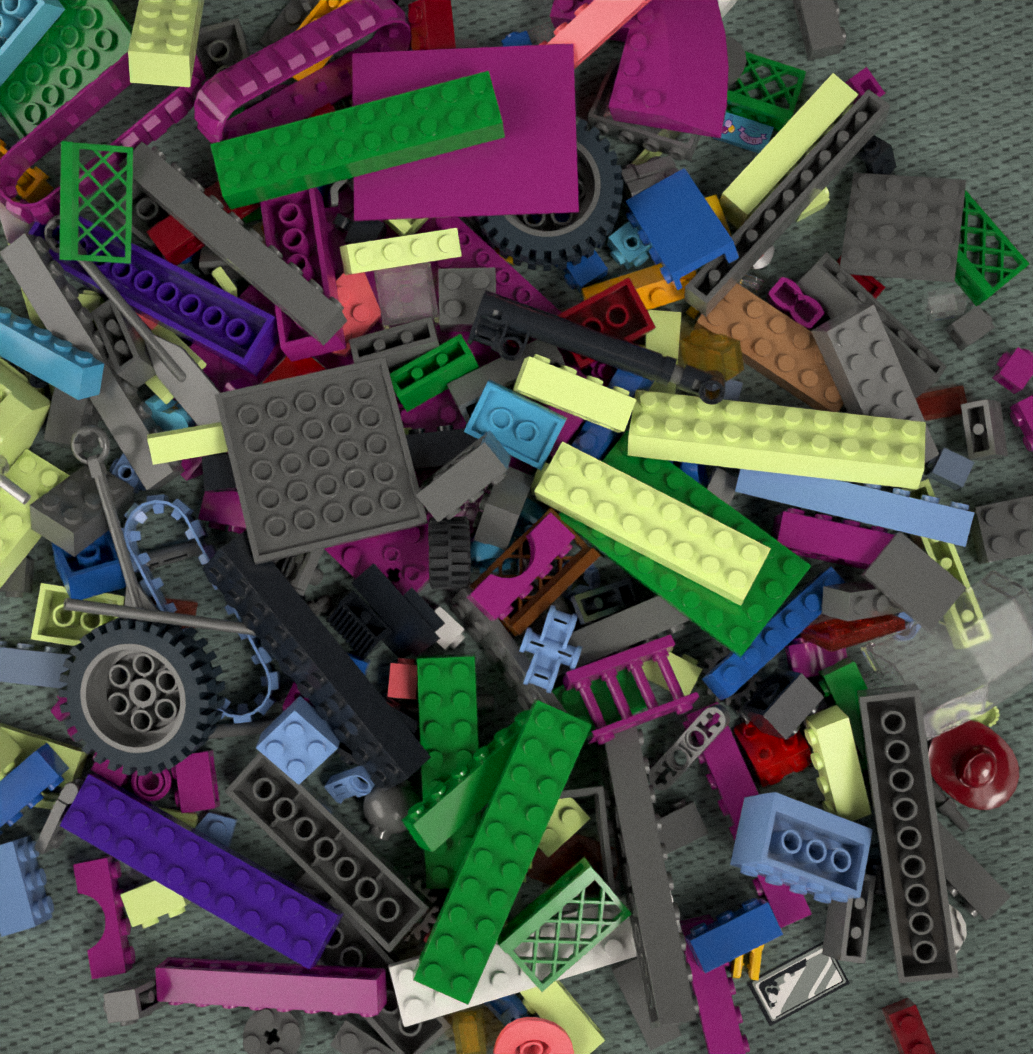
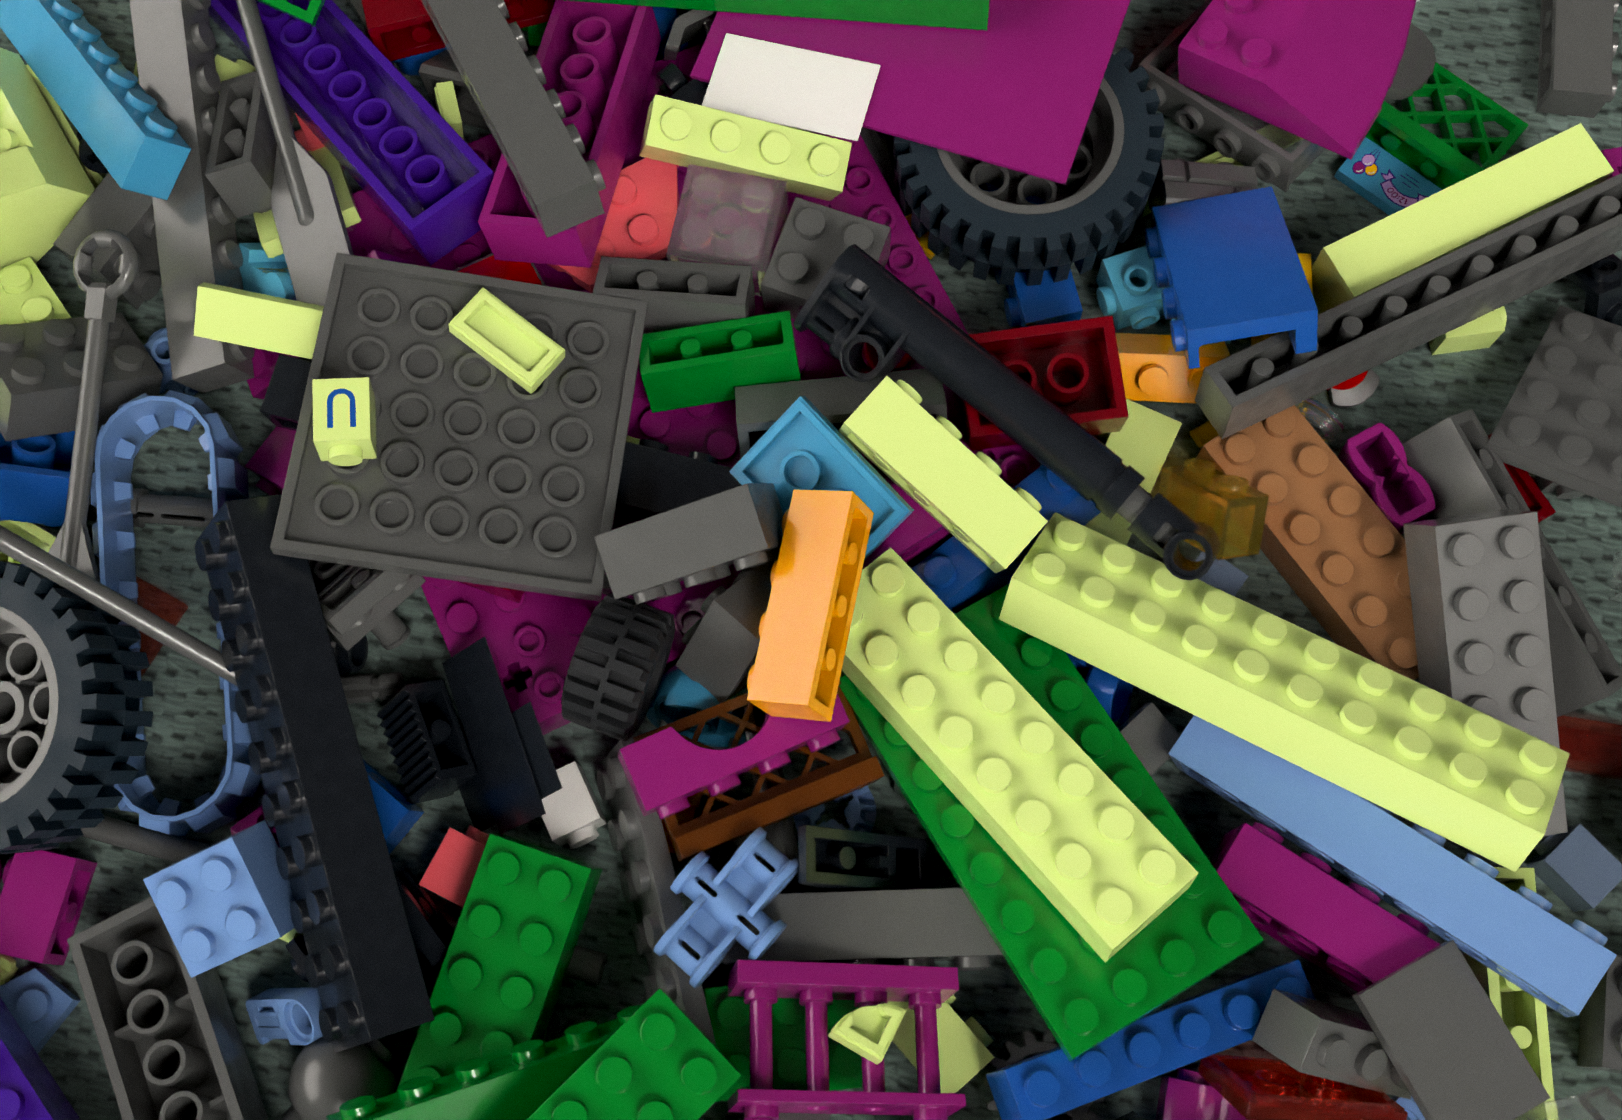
camera: 25 degrees right, 10 degrees down
(264, 484) = (344, 420): none -> yellowish green brick
(324, 407) = (507, 340): none -> yellowish green tile
(412, 207) = (792, 86): none -> white sticker
(536, 487) = (810, 605): none -> light orange brick
(640, 680) = (868, 1030): none -> yellowish green tile

